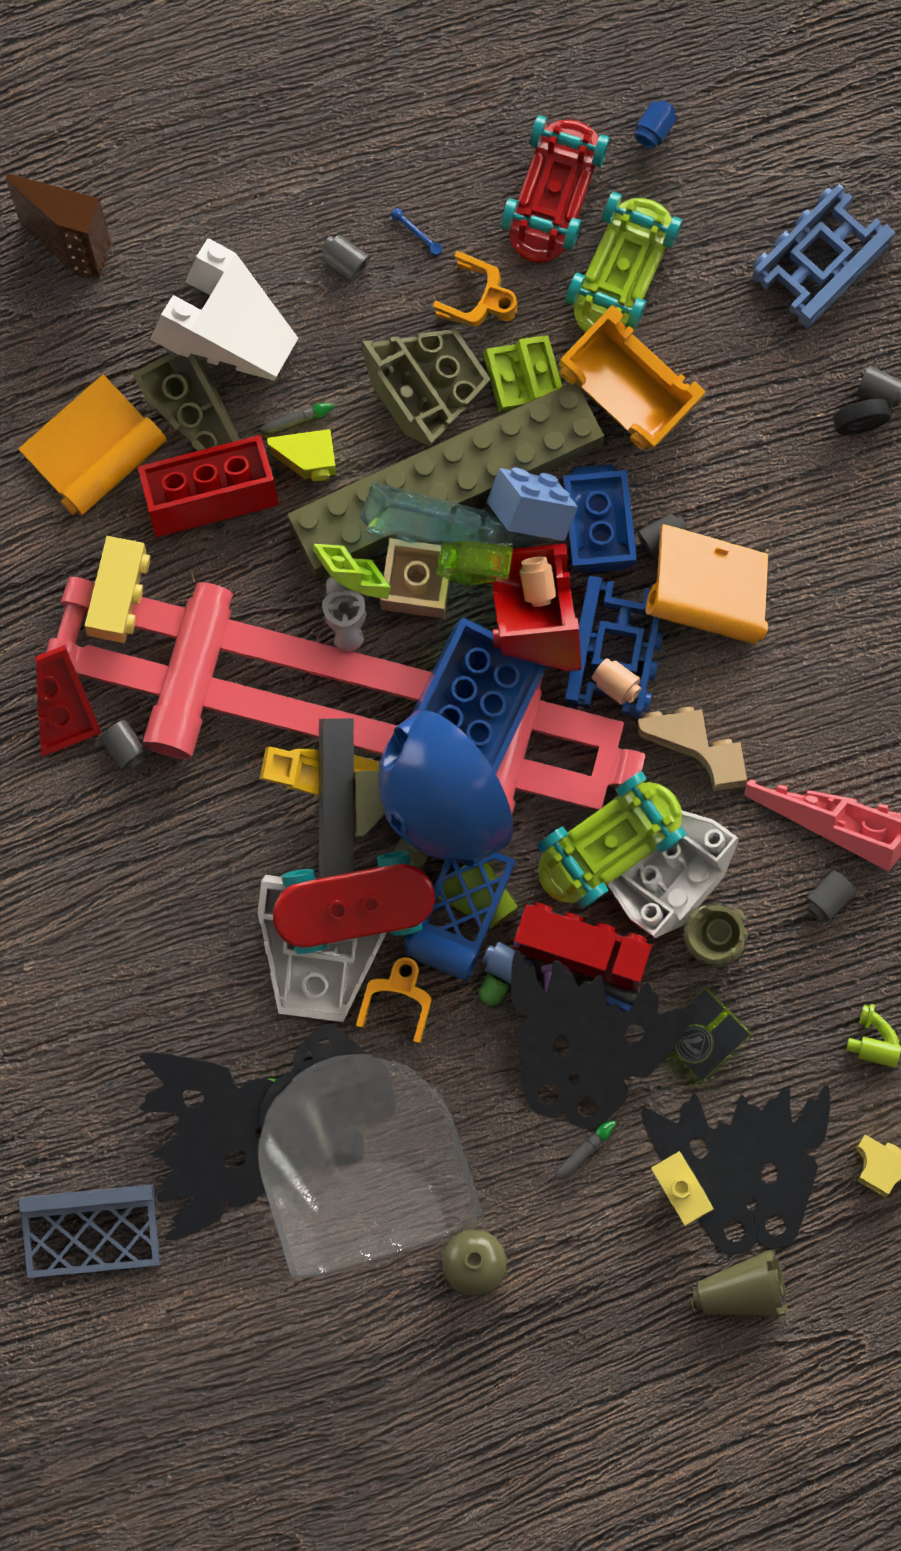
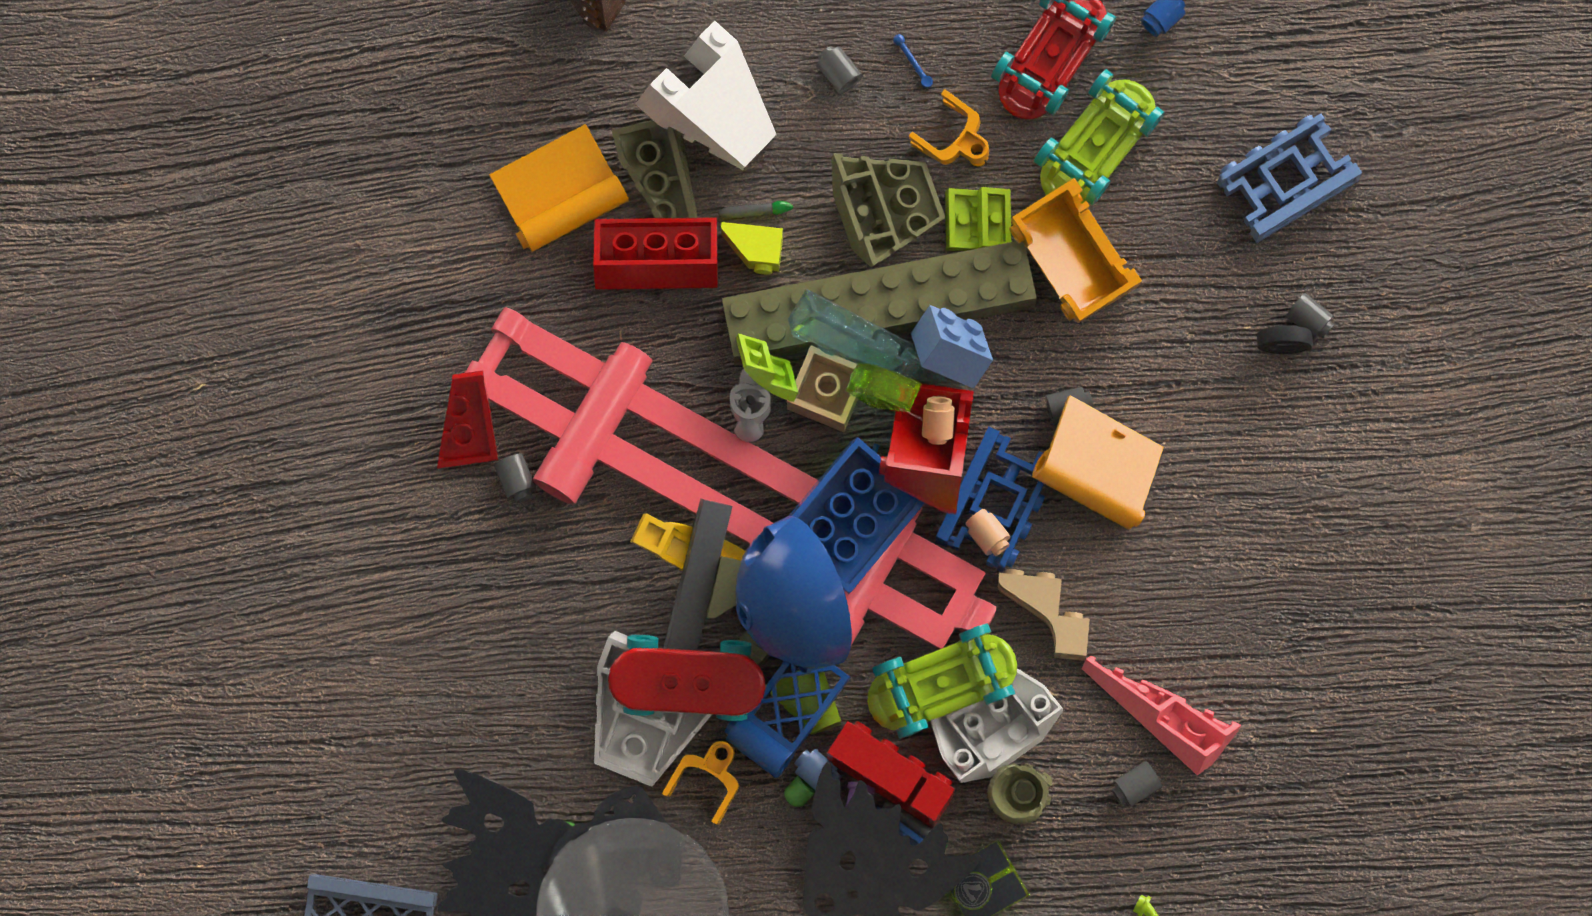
camera: 15 degrees right, 0 degrees up
(117, 589) = (545, 330): light yellow brick -> none
(603, 522) = (1014, 380): blue slope -> none

